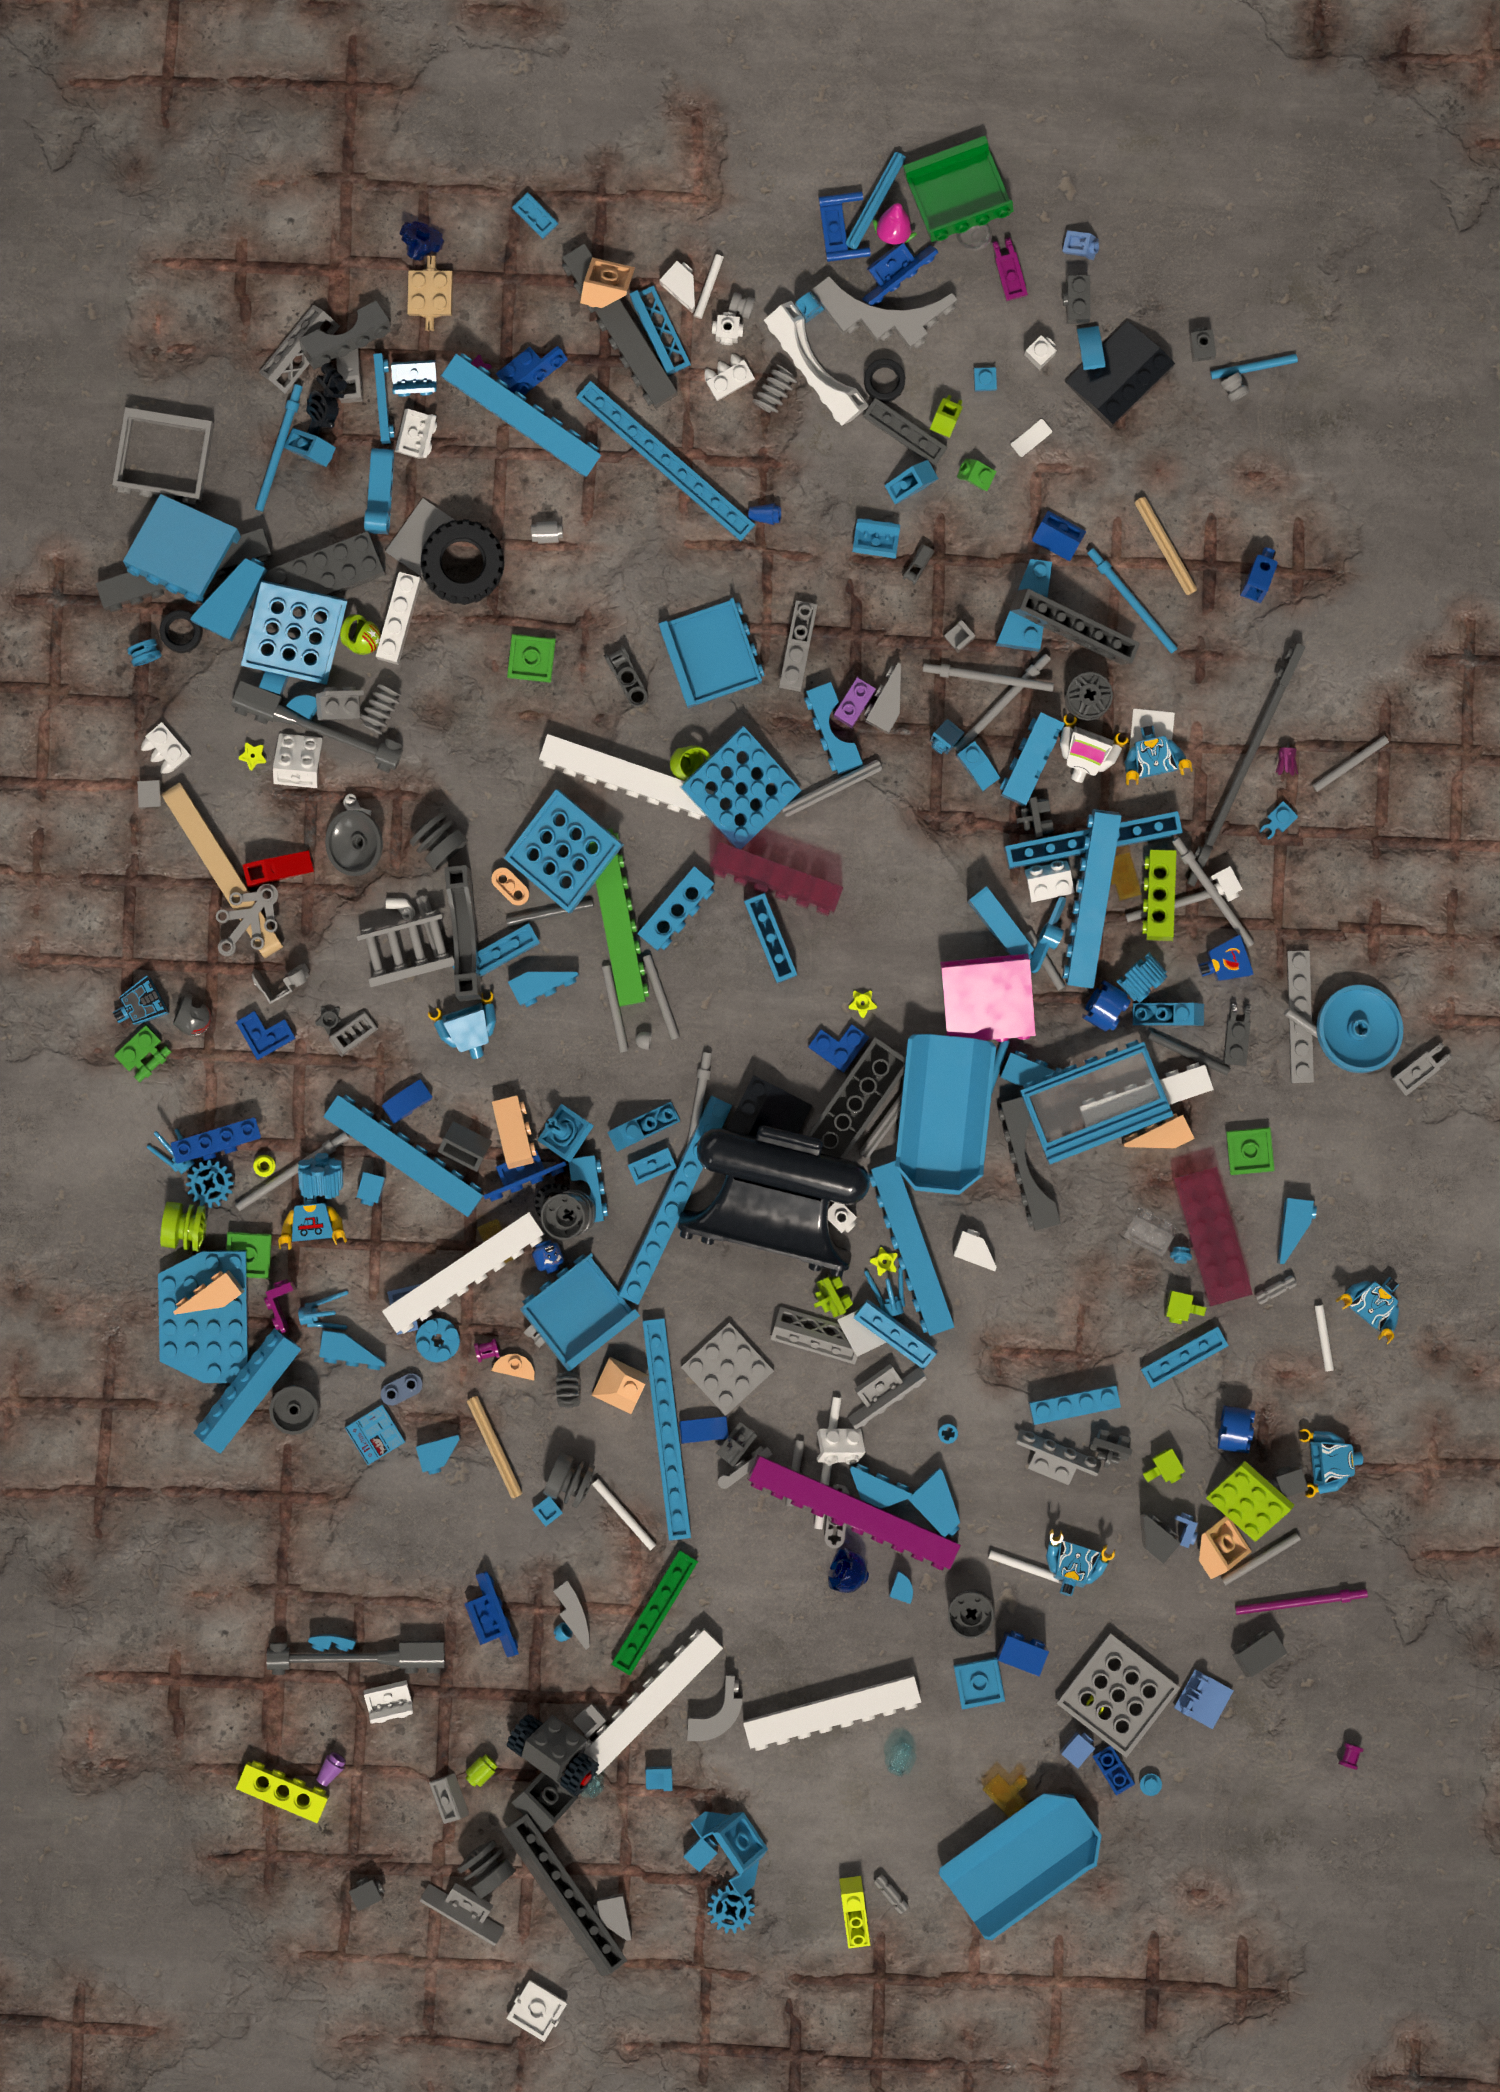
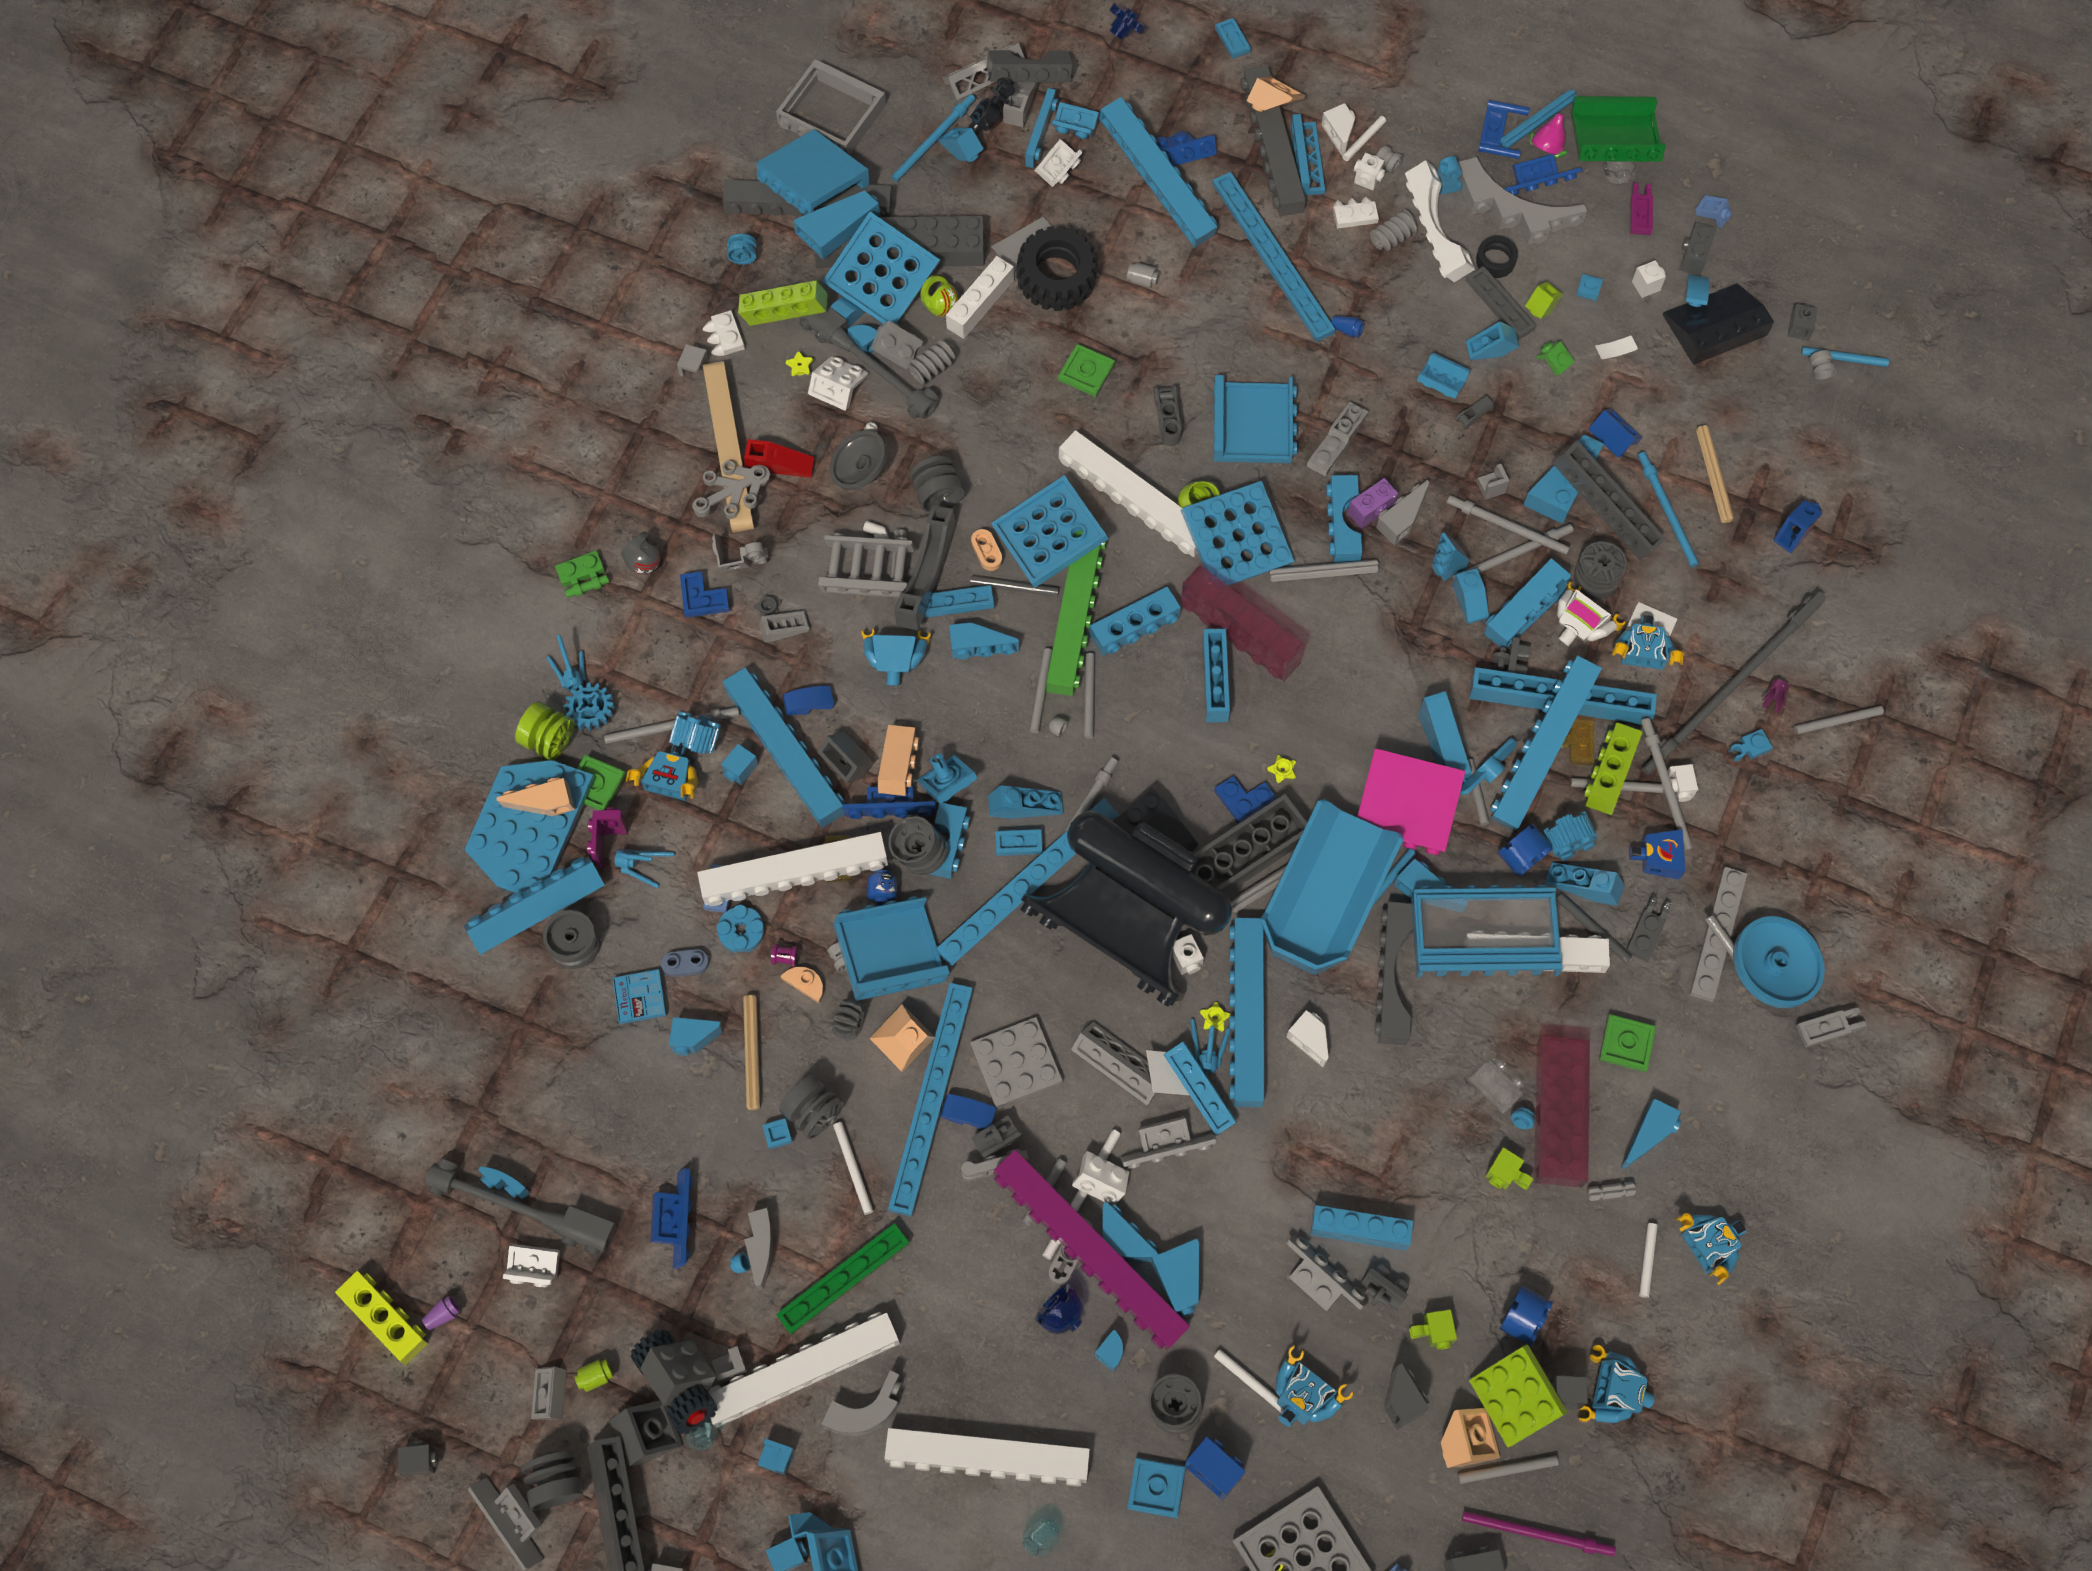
camera: 20 degrees right, 20 degrees down
(141, 1003) = (601, 530): torso -> none
(183, 648) = (782, 259): black tyre -> none
(213, 703) = (783, 303): none -> lime brick
(215, 1141) = (612, 668): blue bracket -> none
(257, 1165) = (643, 706): neon yellow plate -> none
(343, 1347) = (644, 900): dark azure slope -> none
(380, 491) = (999, 209): dark azure beam -> none
(430, 293) = (1117, 66): tan plate -> none
(828, 1297) = (1145, 1028): lime hips -> none
(951, 1439) = (1219, 1218): dark azure bush -> none
(1049, 881) = (1506, 722): white bracket -> none
(1168, 1135) = (1543, 996): light nougat slope -> none
(1184, 1357) = (1493, 1224): dark azure plate -> none
(1188, 1535) = (1438, 1411): medium blue bracket -> none

